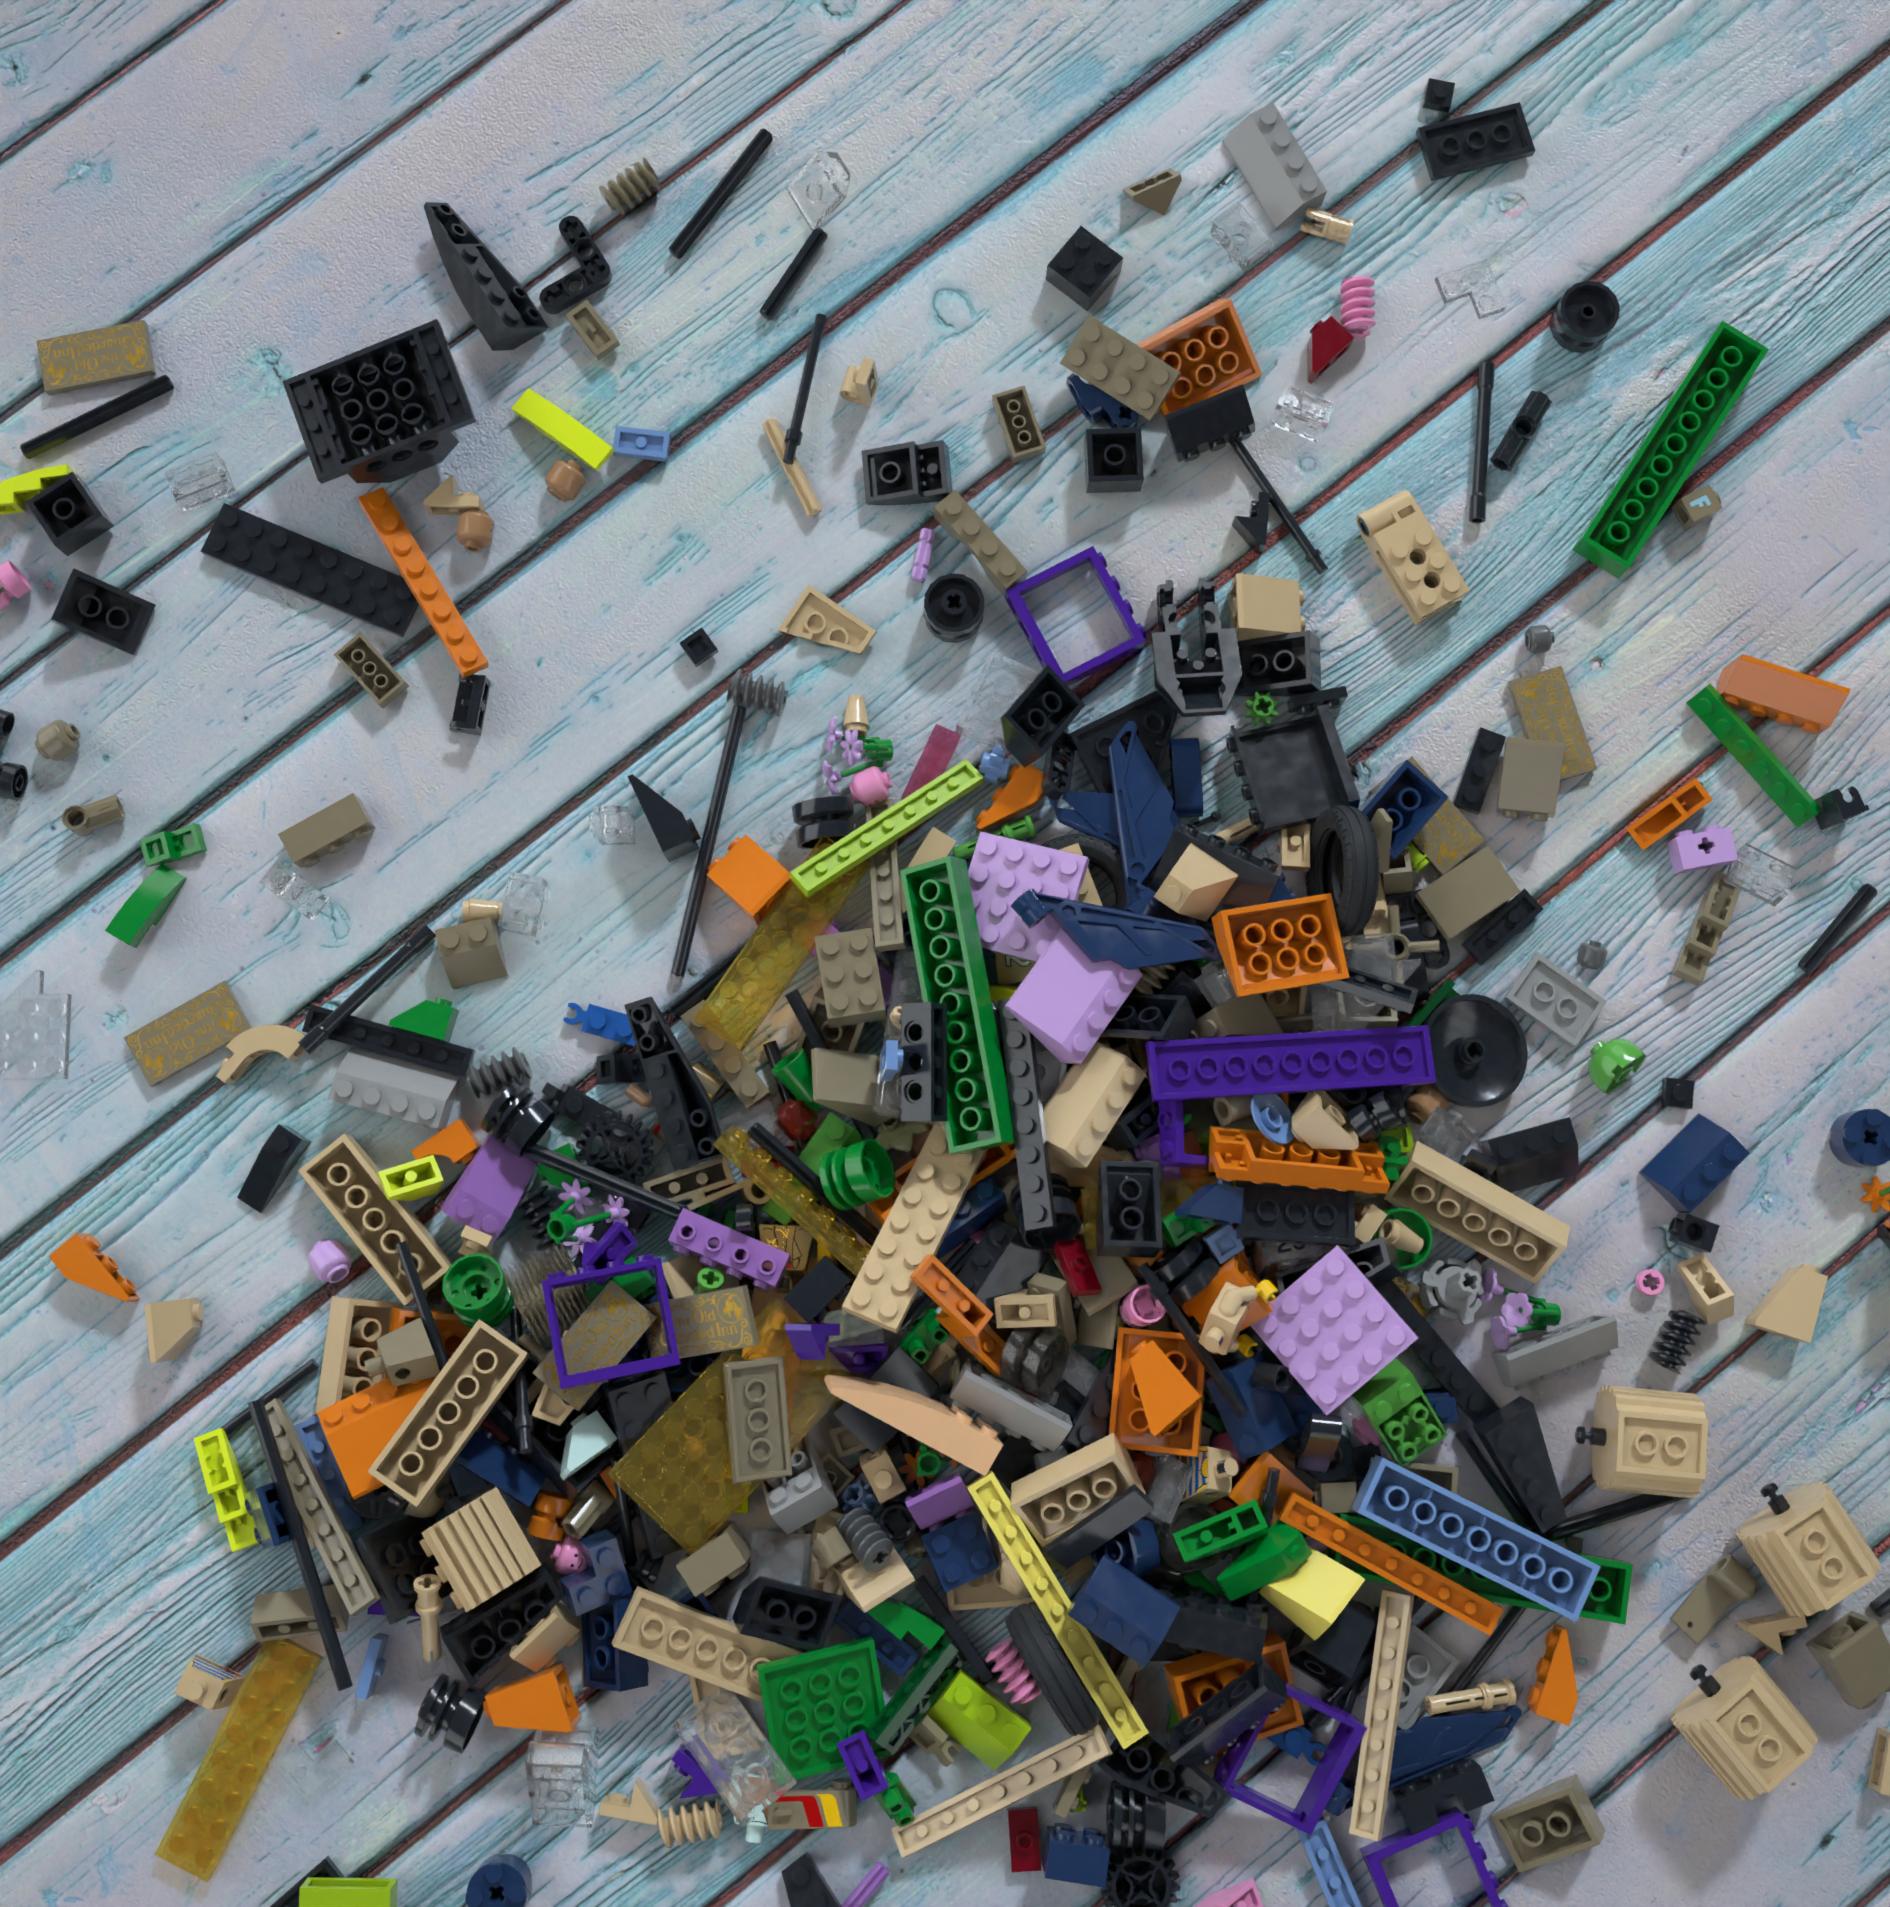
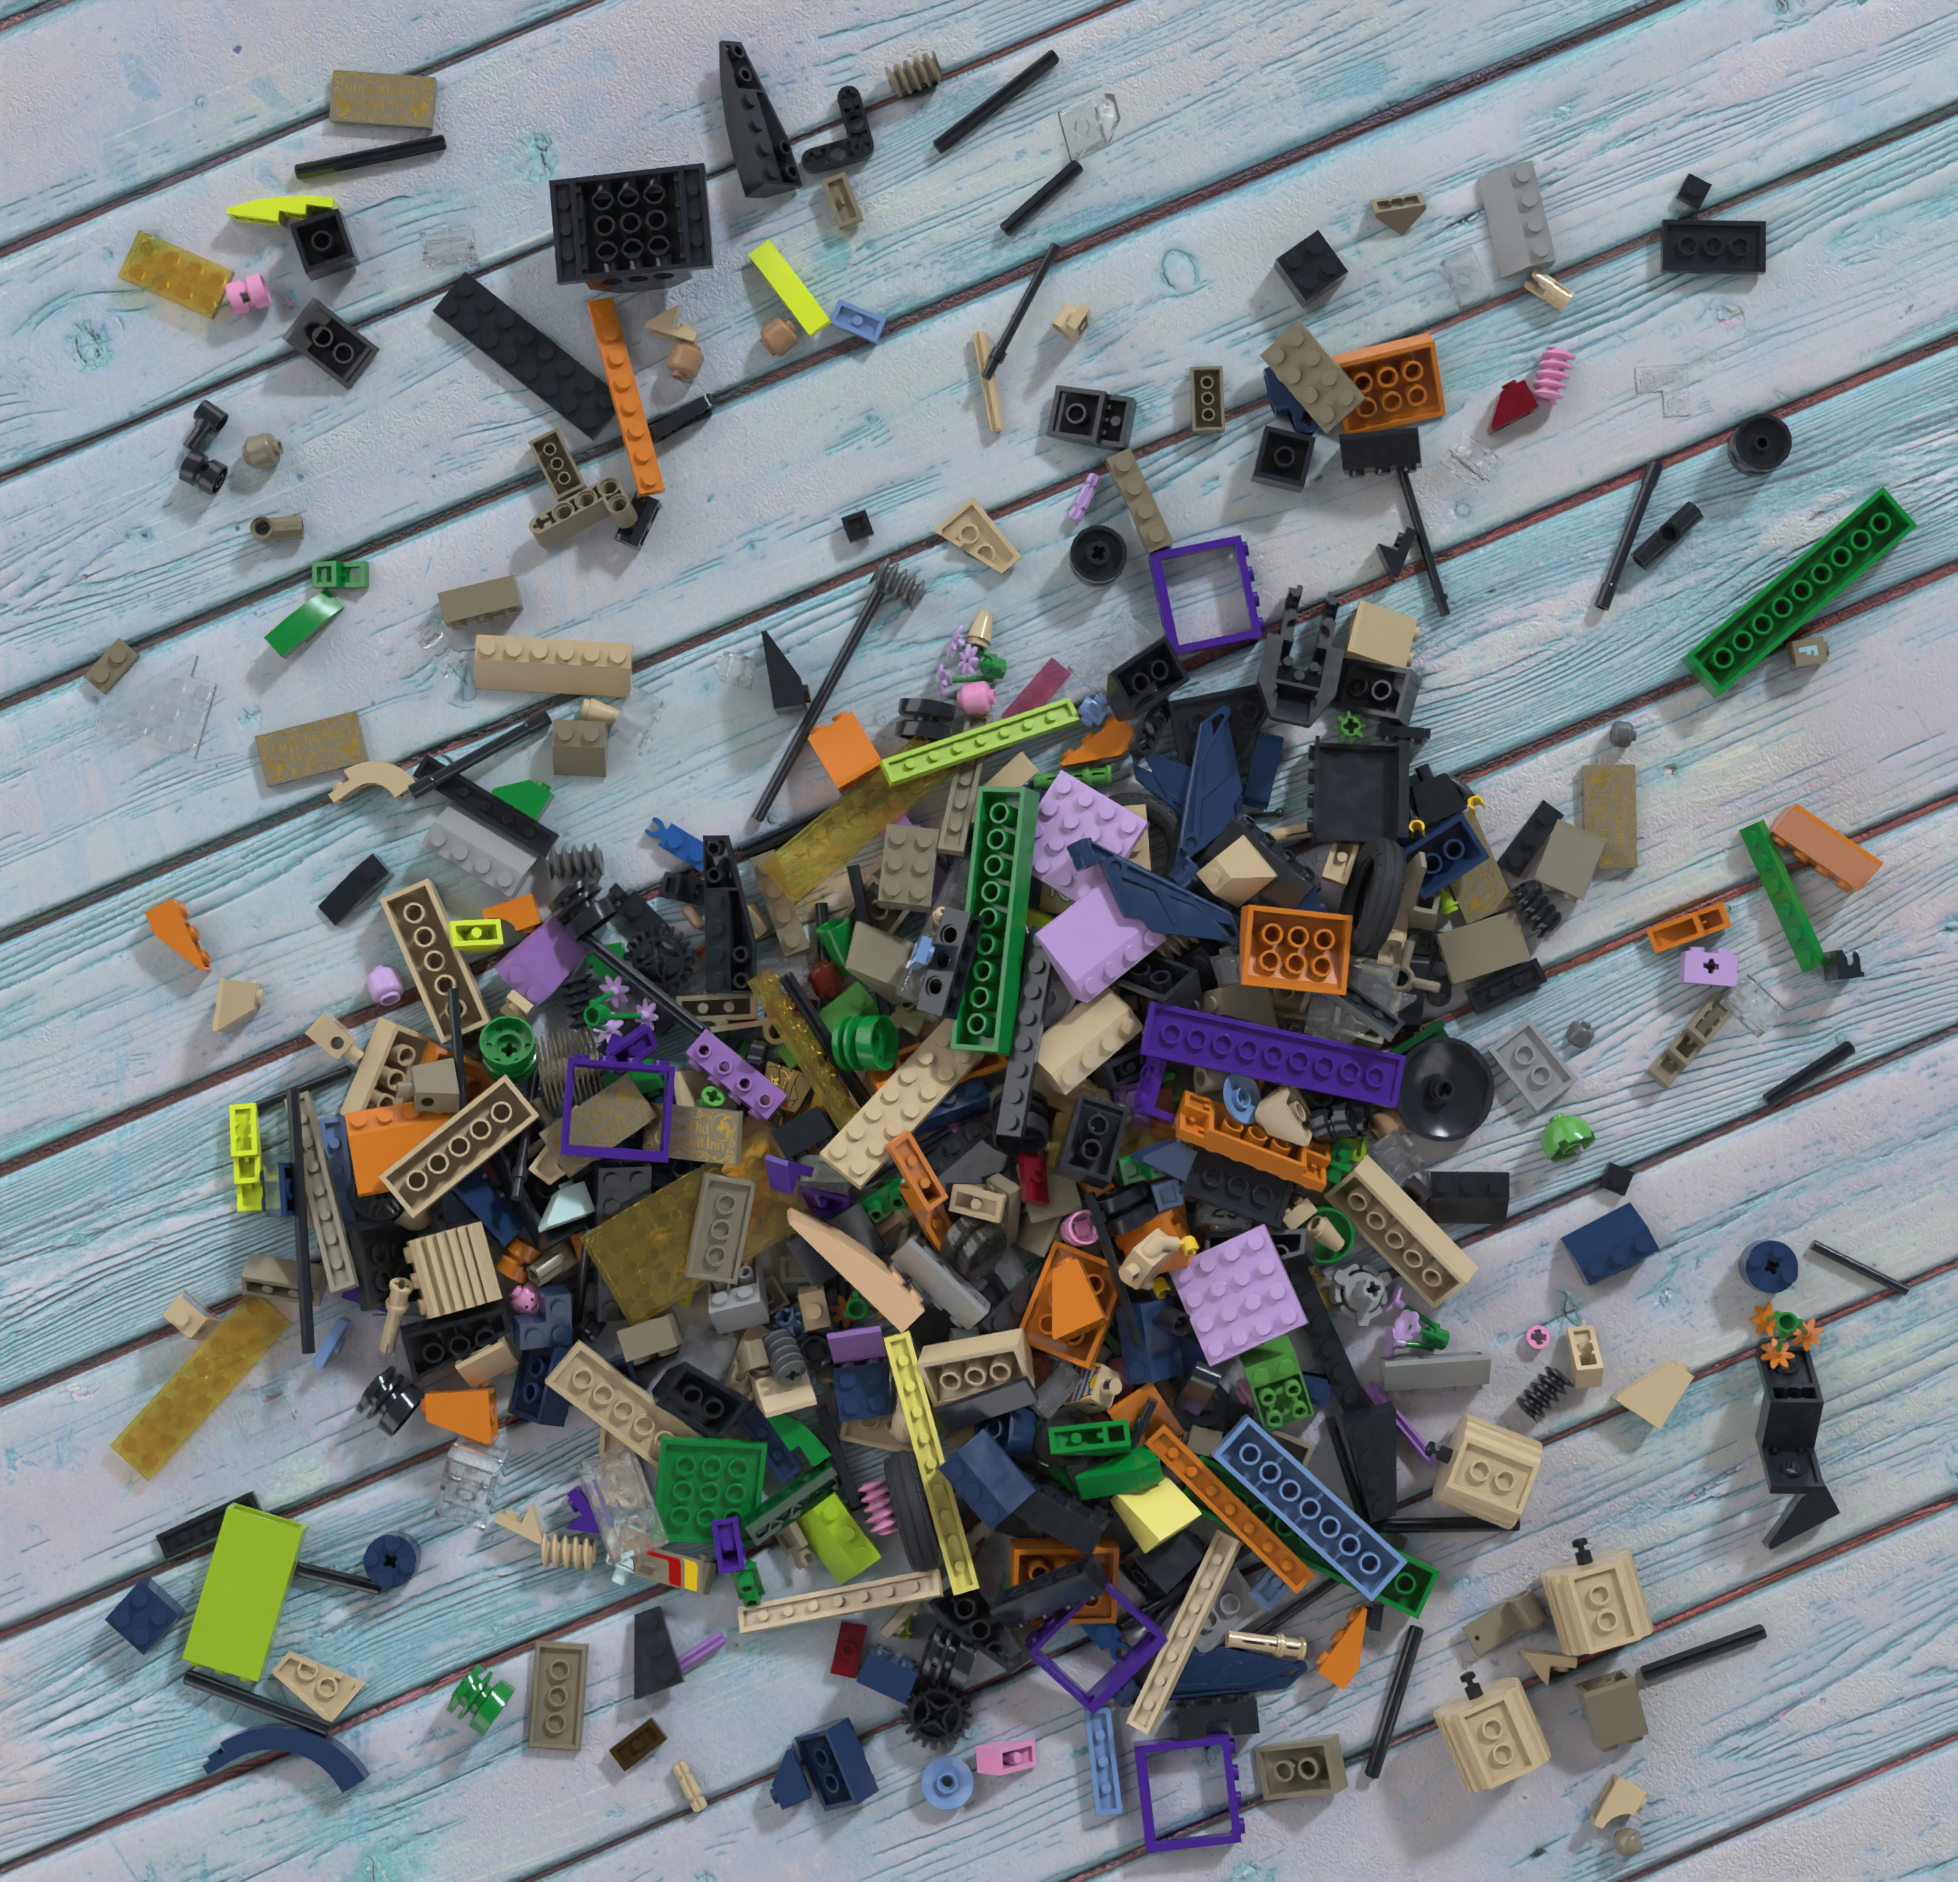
camera: 20 degrees right, 5 degrees up
(276, 1328) = (327, 1028): none -> tan torso
(409, 709) = (583, 511): none -> dark tan beam
(420, 876) = (553, 666): none -> tan slope
(488, 588) = (682, 418): none -> black beam
(1376, 754) = (1437, 799): none -> black torso
(1400, 532) = (1521, 600): tan hinge -> none
(1455, 1638) = (1268, 1589): none -> medium blue plate
(1508, 835) = (1536, 906): none -> black piece
(1547, 1423) = (1402, 1425): none -> medium lavender axle
(1576, 1633) = (1374, 1615): none -> black plate
(1623, 1721) = (1394, 1701): none -> black axle
(1704, 1237) = (1599, 1308): black brick -> none

